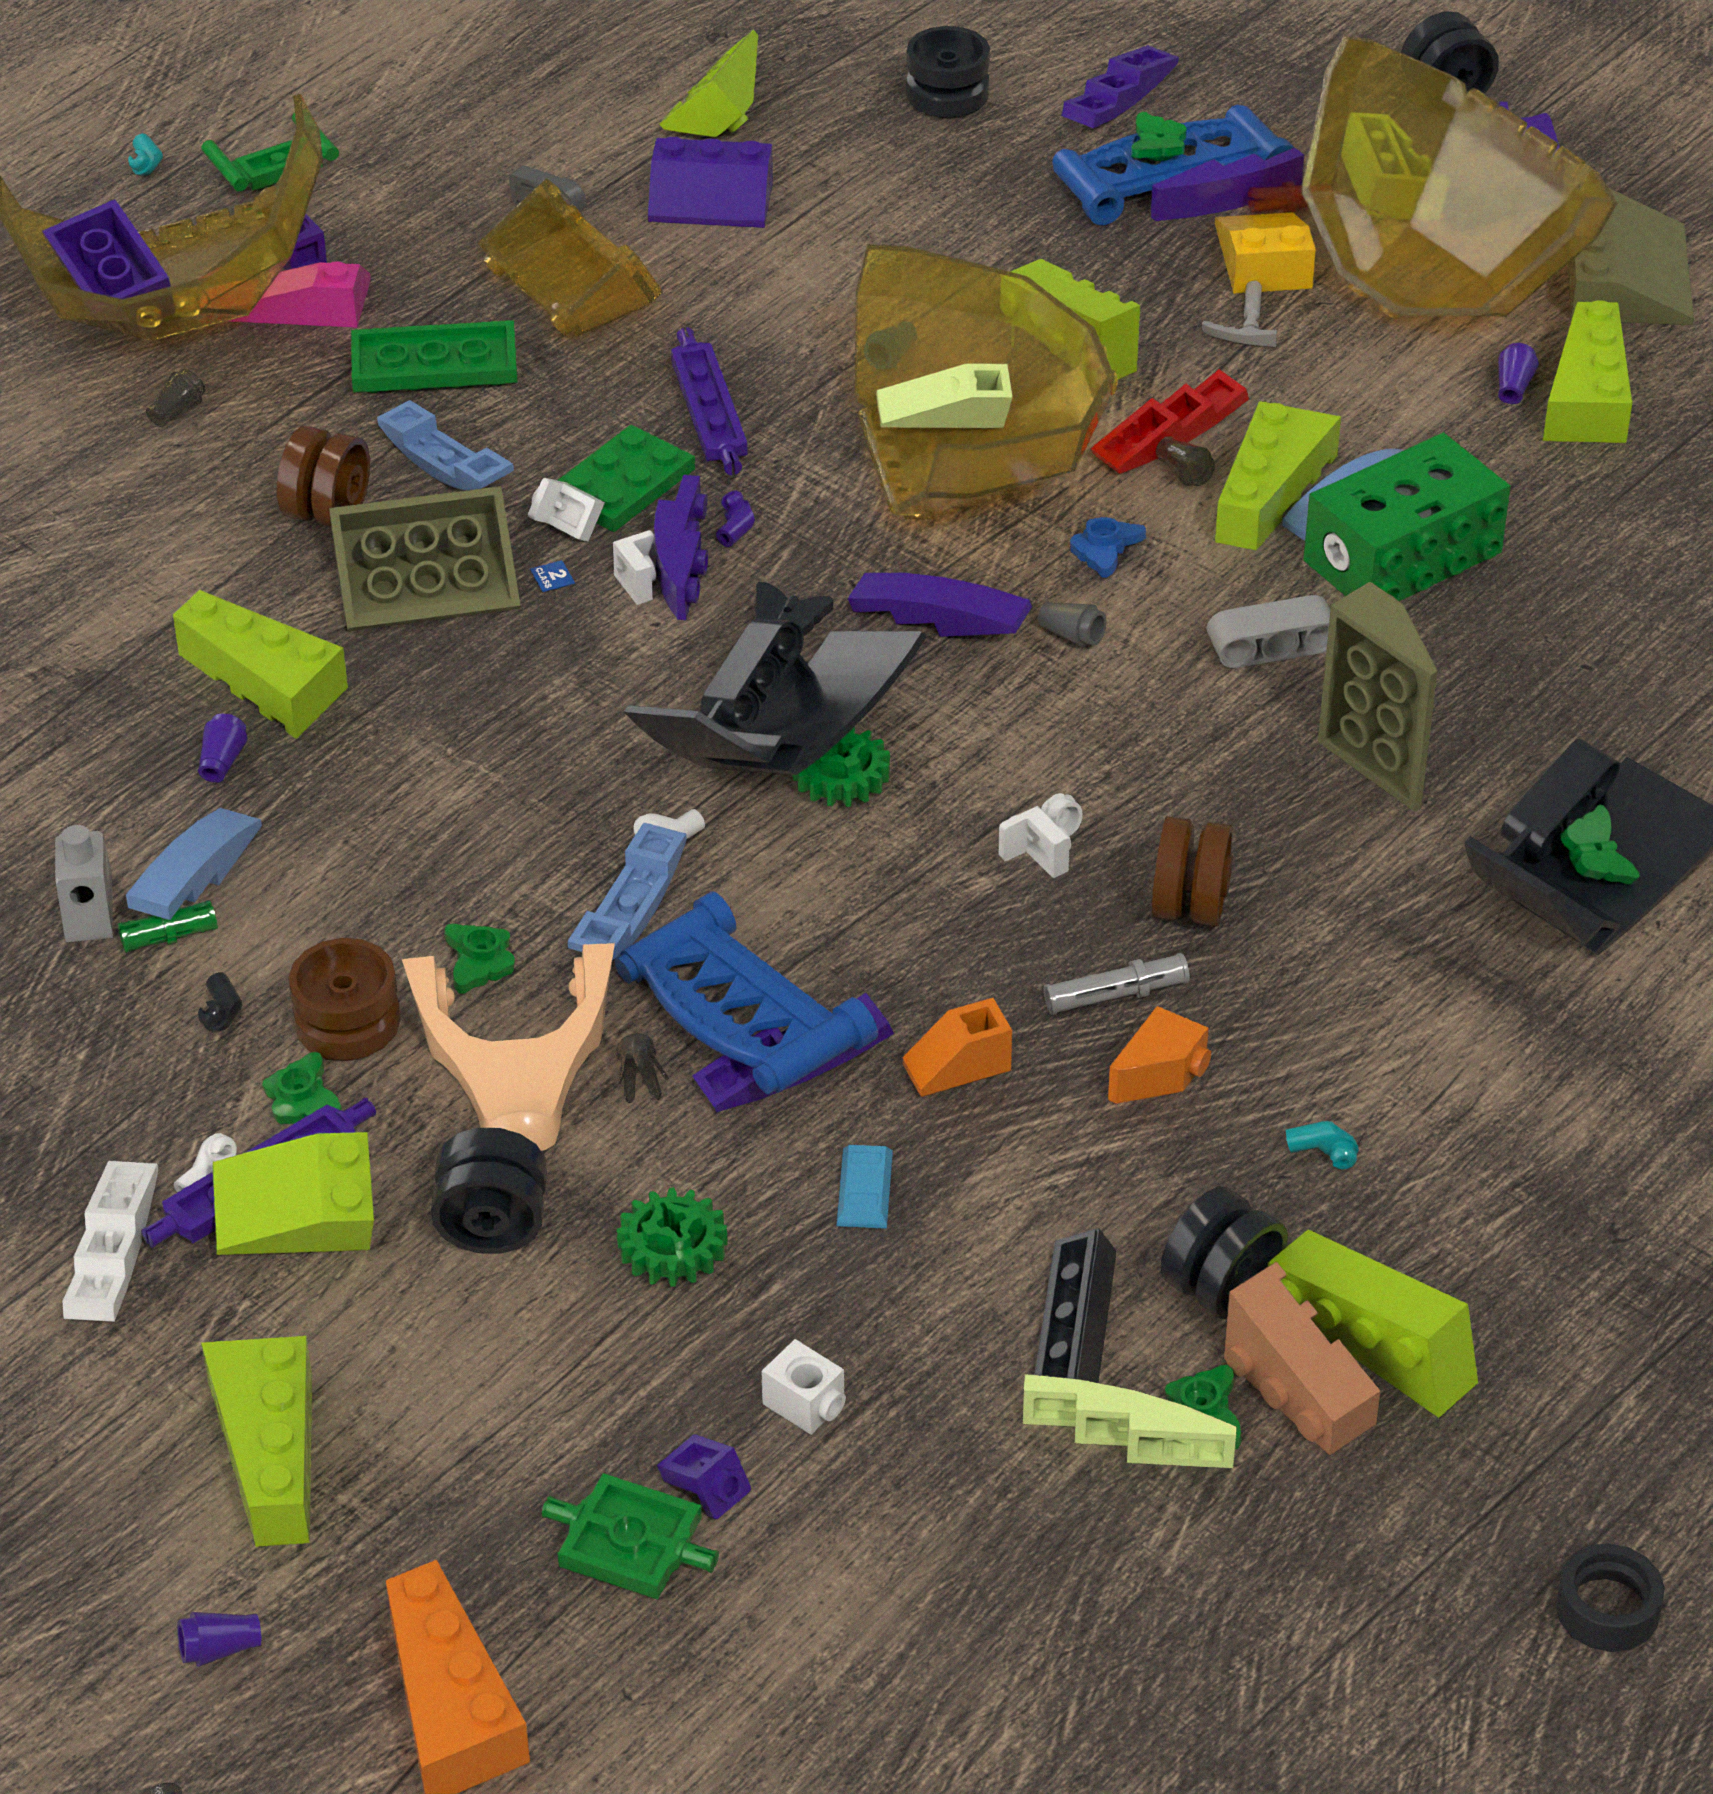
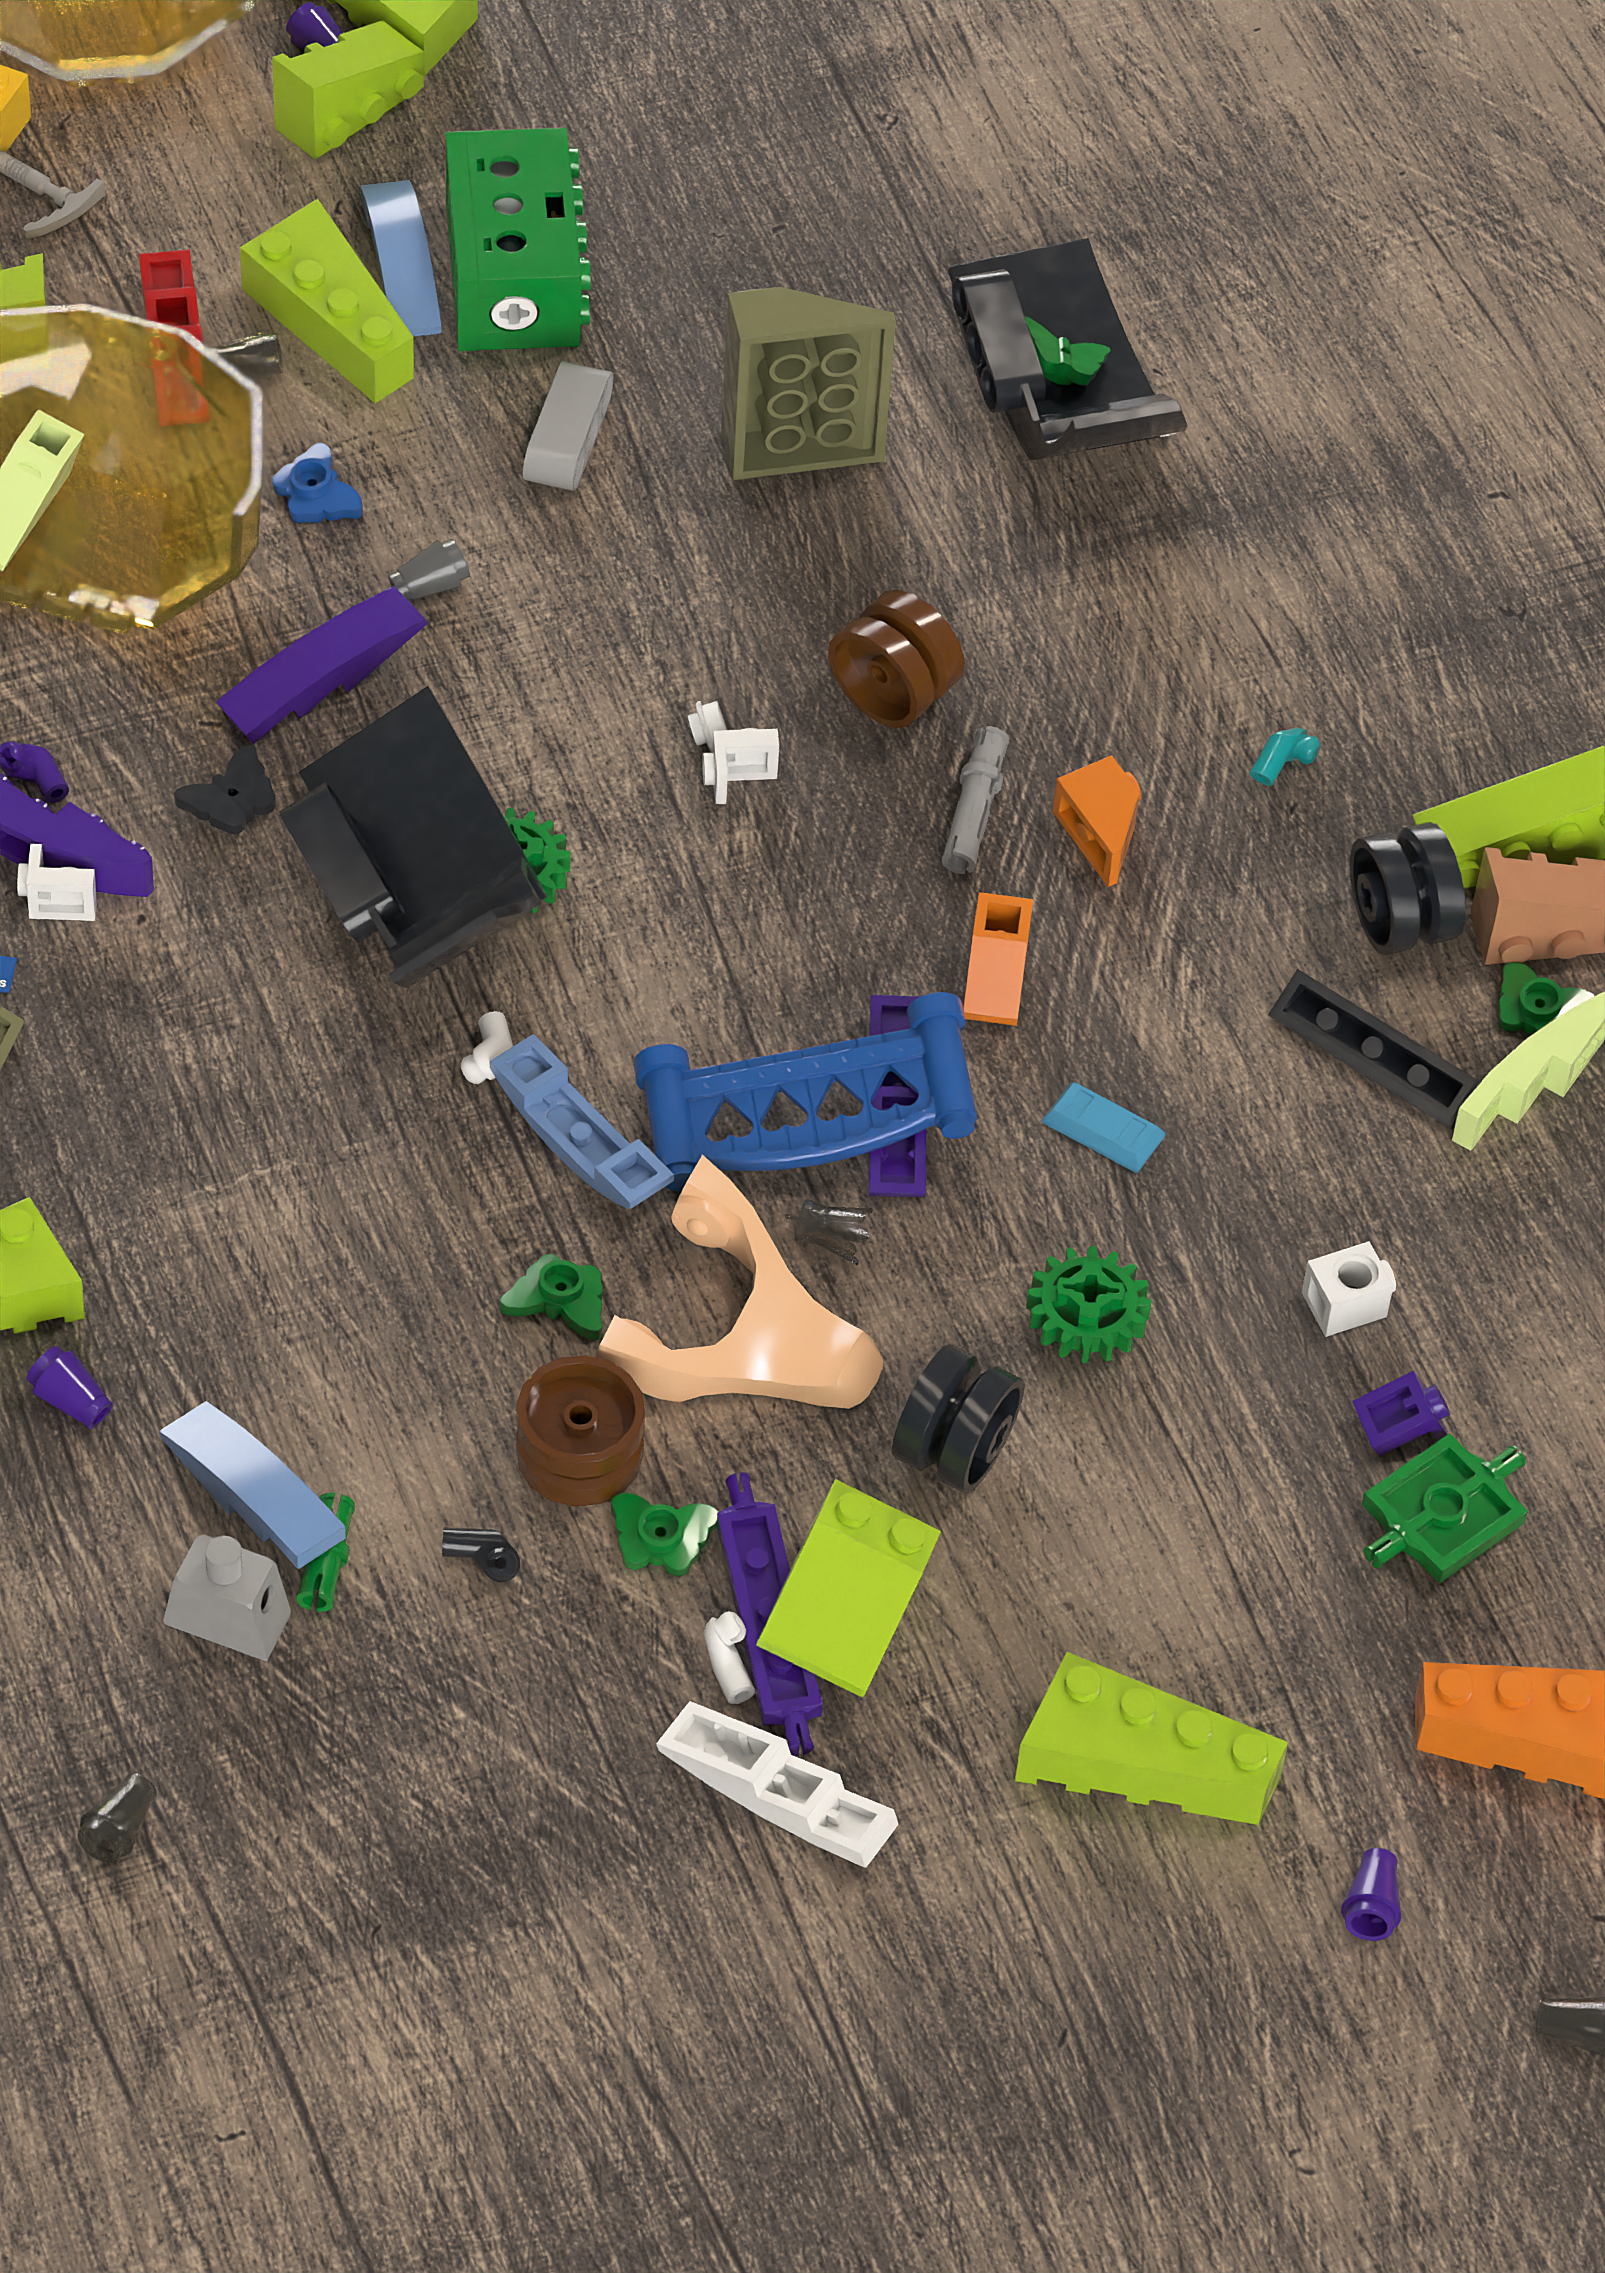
camera: 65 degrees left, 10 degrees up
(1473, 395) = (343, 86): none -> lime wedge

